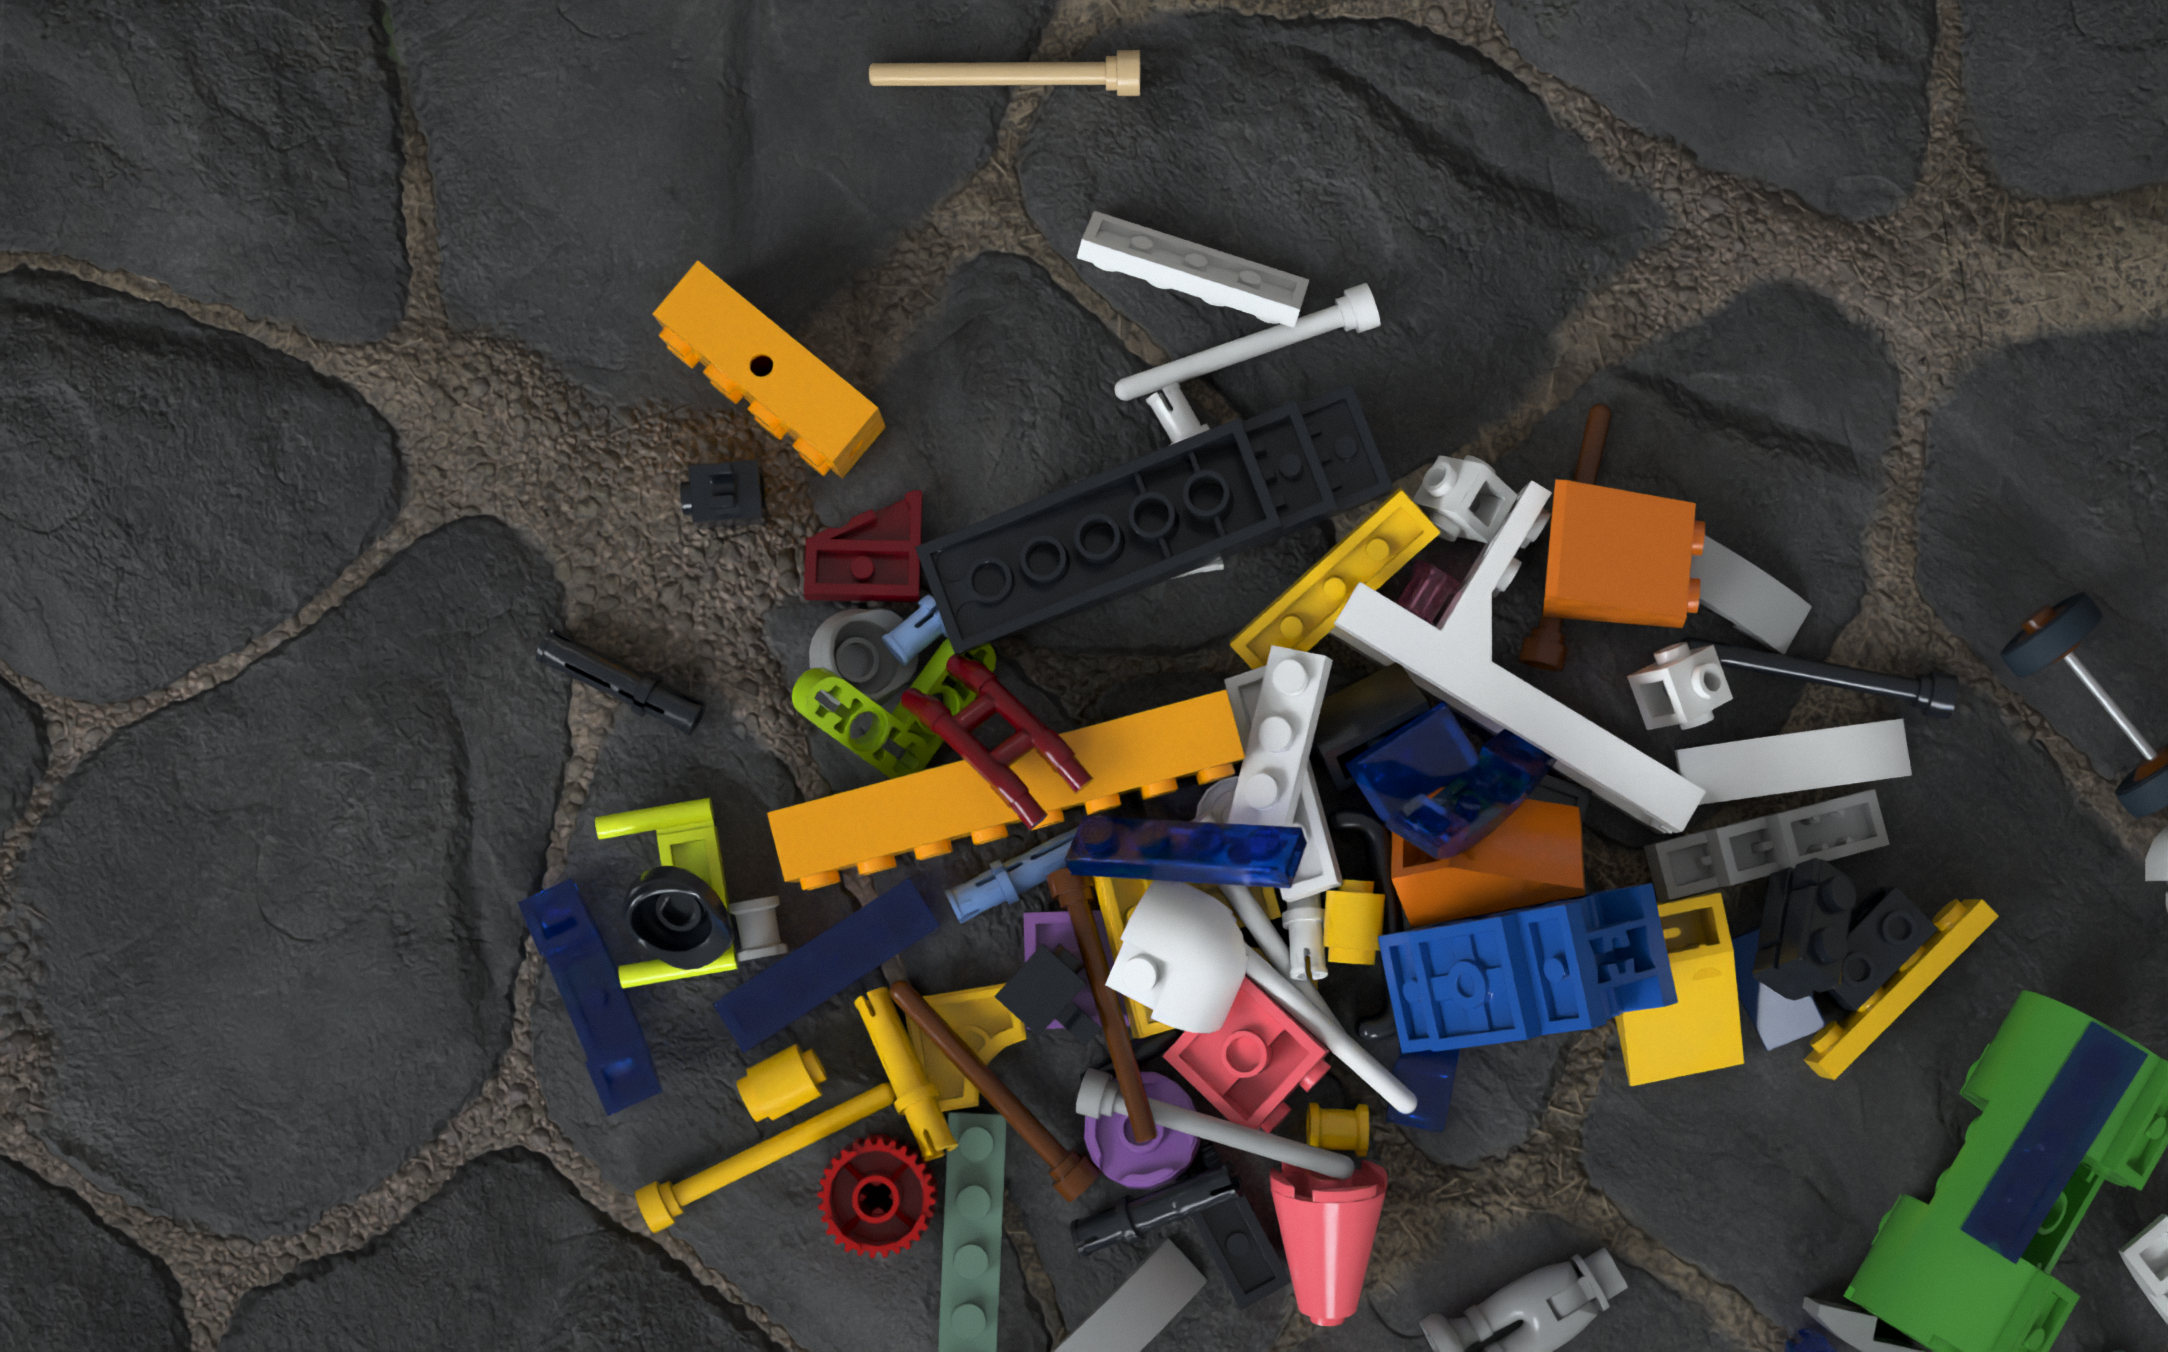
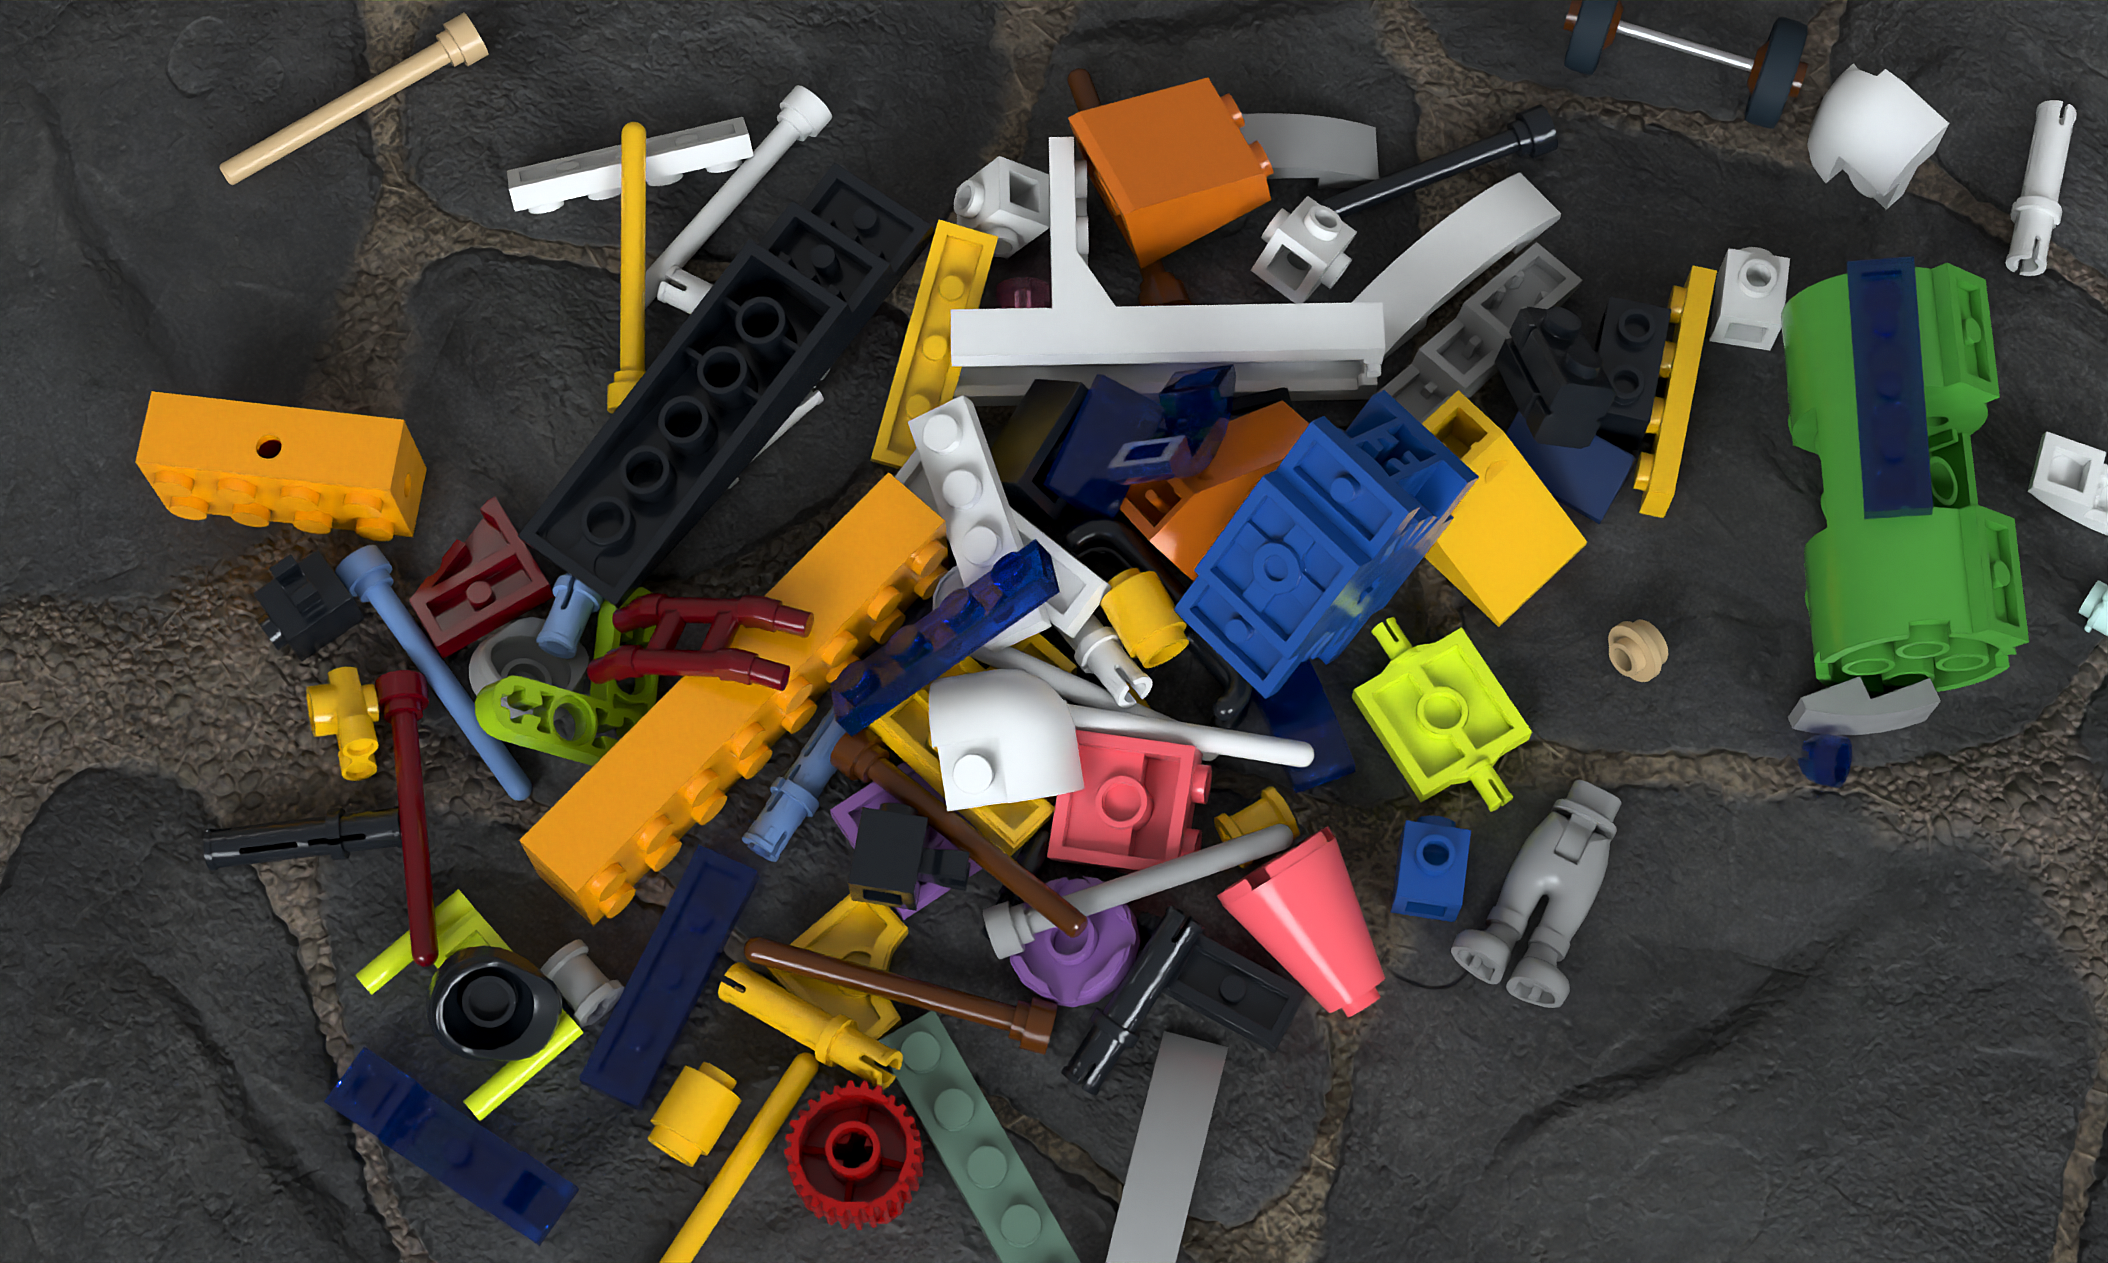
camera: 30 degrees left, 15 degrees down
(707, 598) = (349, 712): none -> yellow plate
(754, 618) = (402, 699): none -> dark red piece
(787, 500) = (368, 576): none -> medium blue piece
(1084, 461) = (632, 264): none -> yellow piece
(1447, 1247) = (1431, 869): none -> blue brick
(1537, 1131) = (1441, 714): none -> neon yellow plate
(1722, 1176) = (1637, 649): none -> tan plate
(2014, 947) = (1749, 298): none -> white brick

